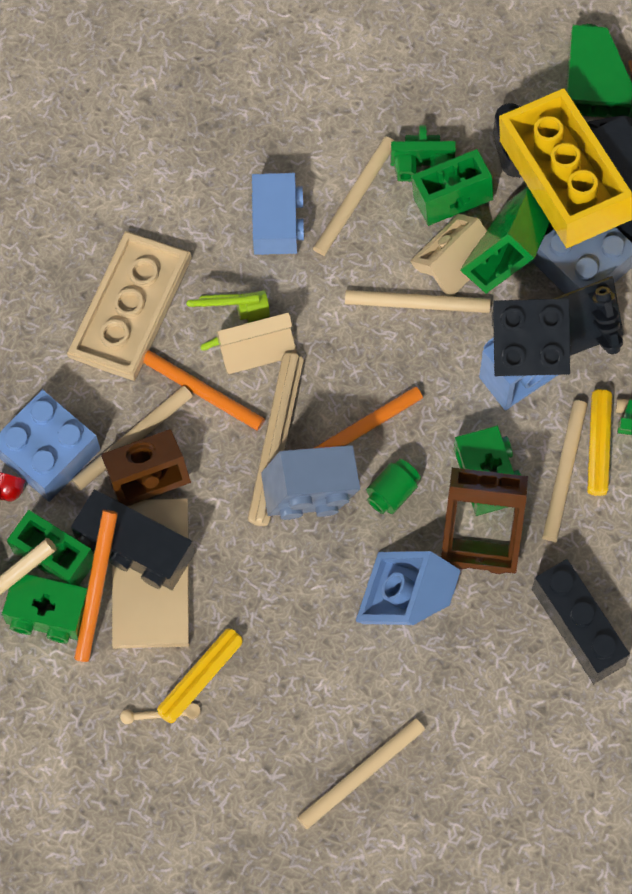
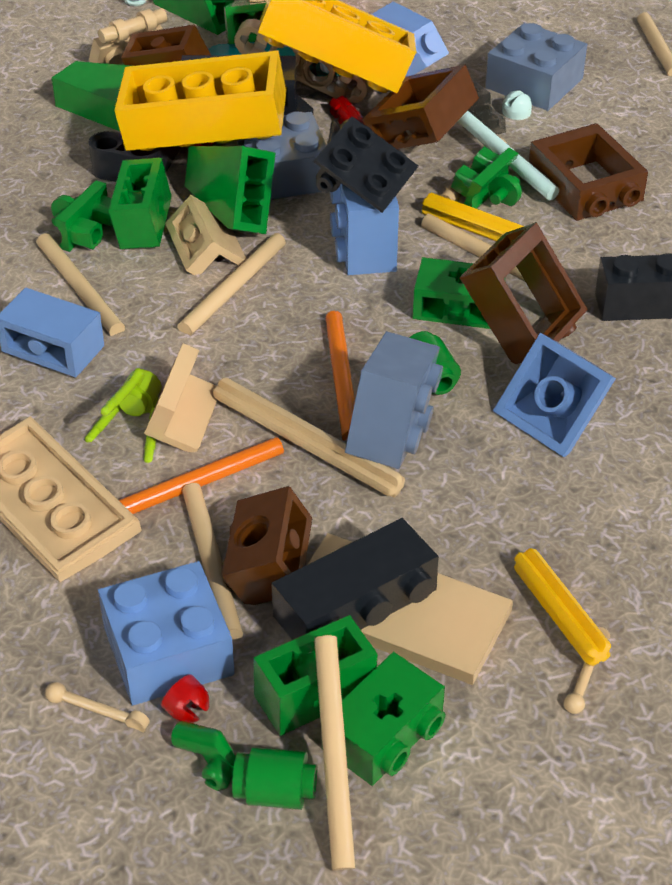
camera: 65 degrees left, 25 degrees down
(95, 585) = (393, 634): orange bar -> none

